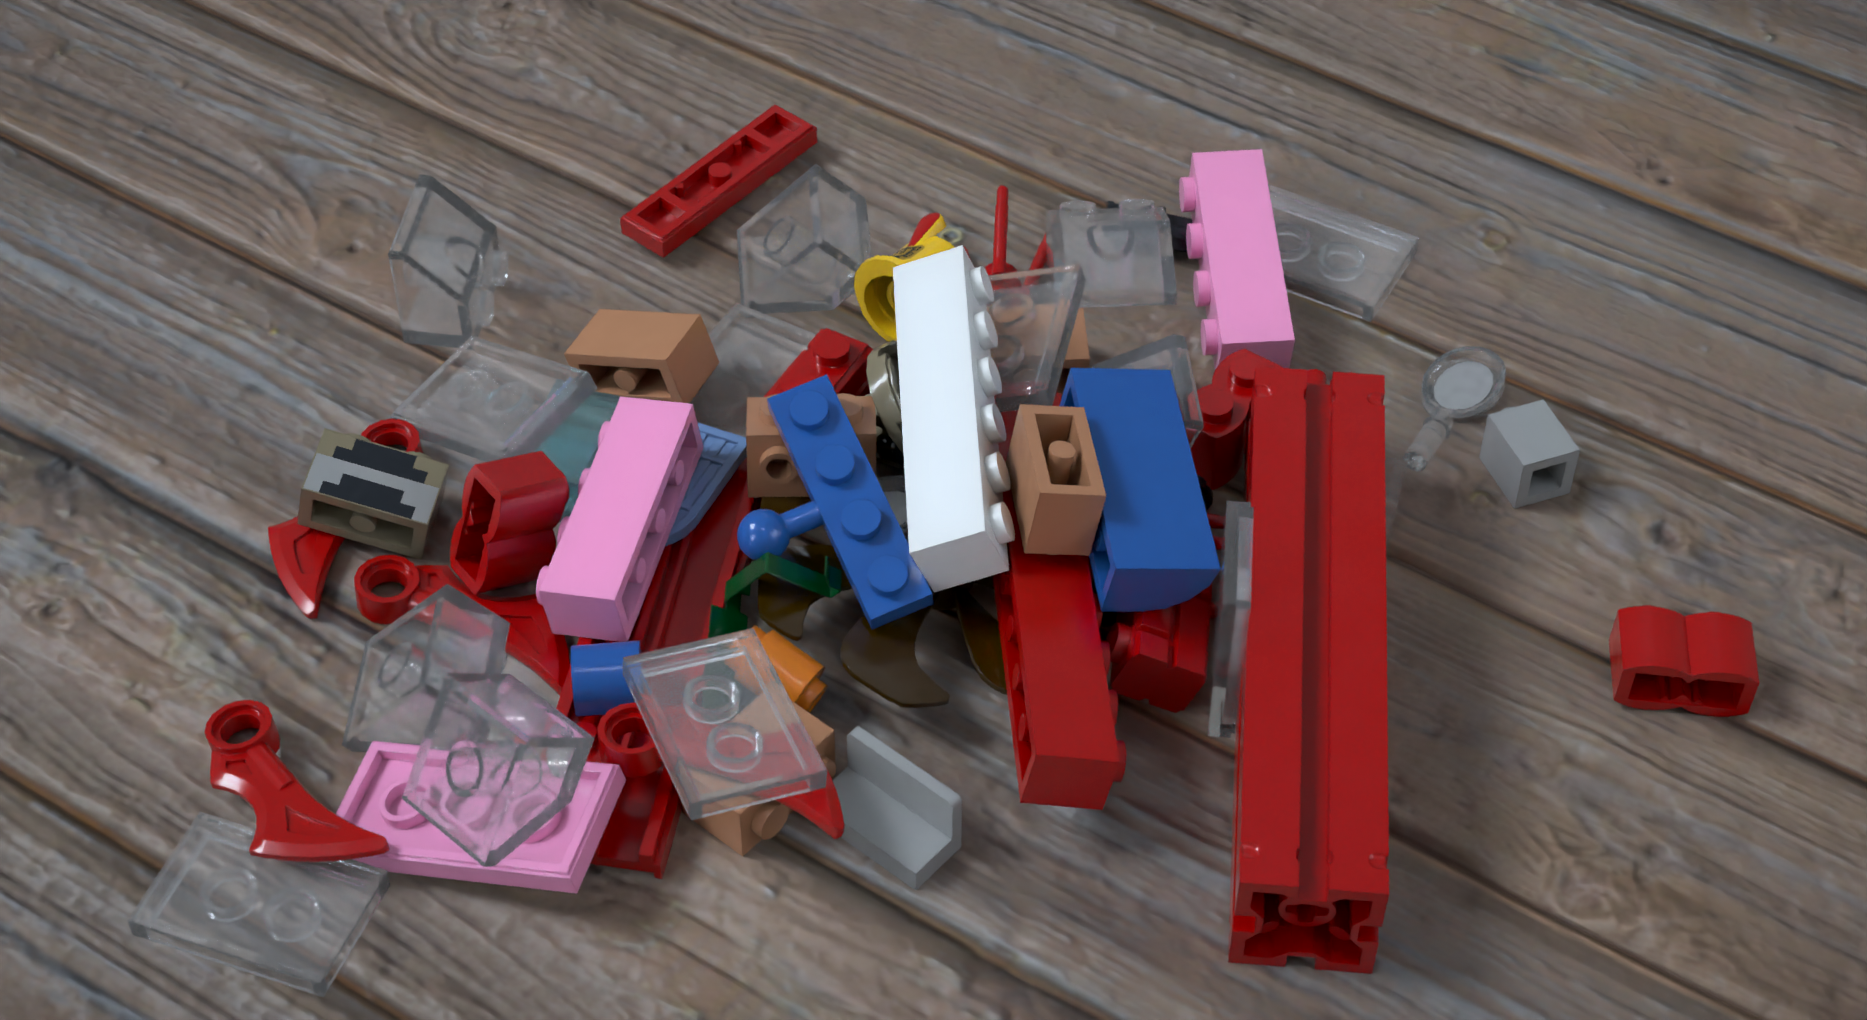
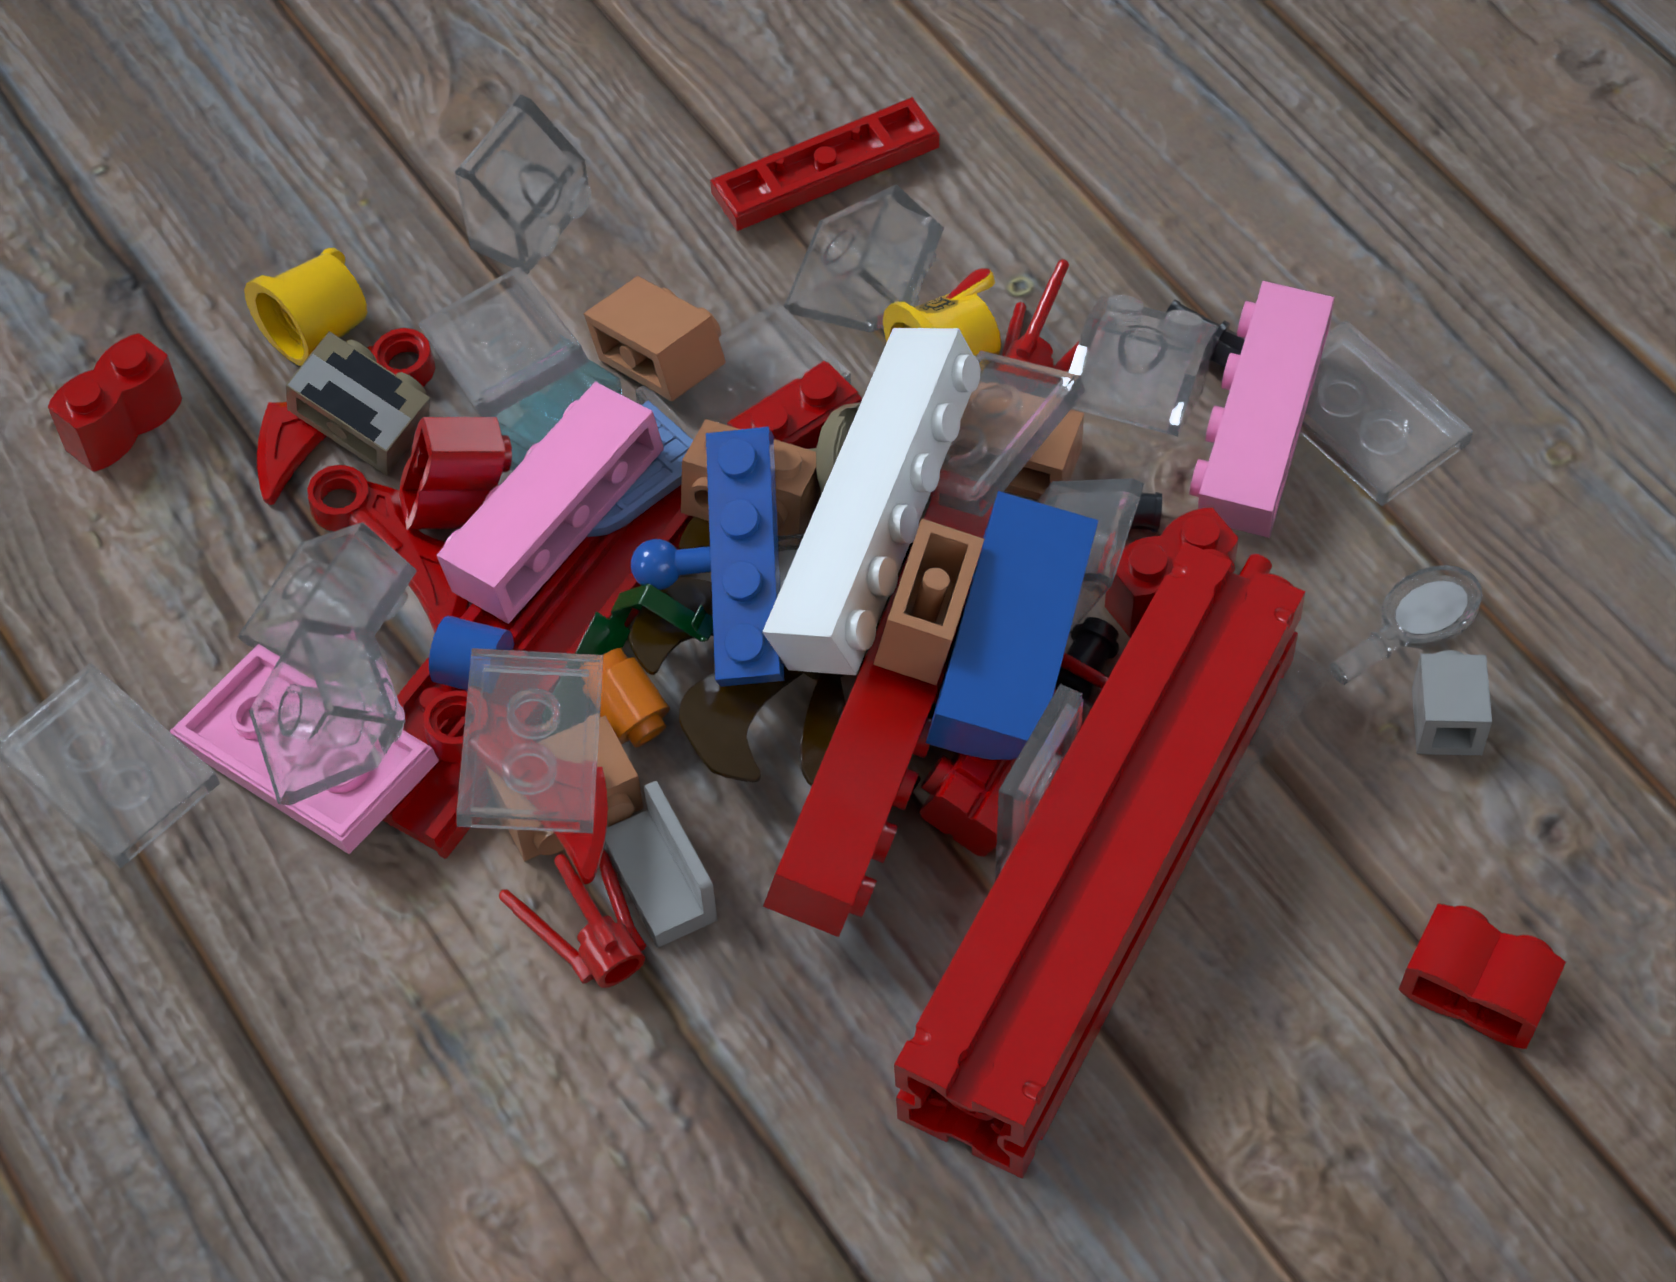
camera: 25 degrees right, 10 degrees up
(110, 566) = (115, 402): none -> red brick
(271, 428) = (305, 304): none -> yellow hat
(288, 818) = (156, 699): red piece -> none
(873, 897) = (607, 949): none -> red plant

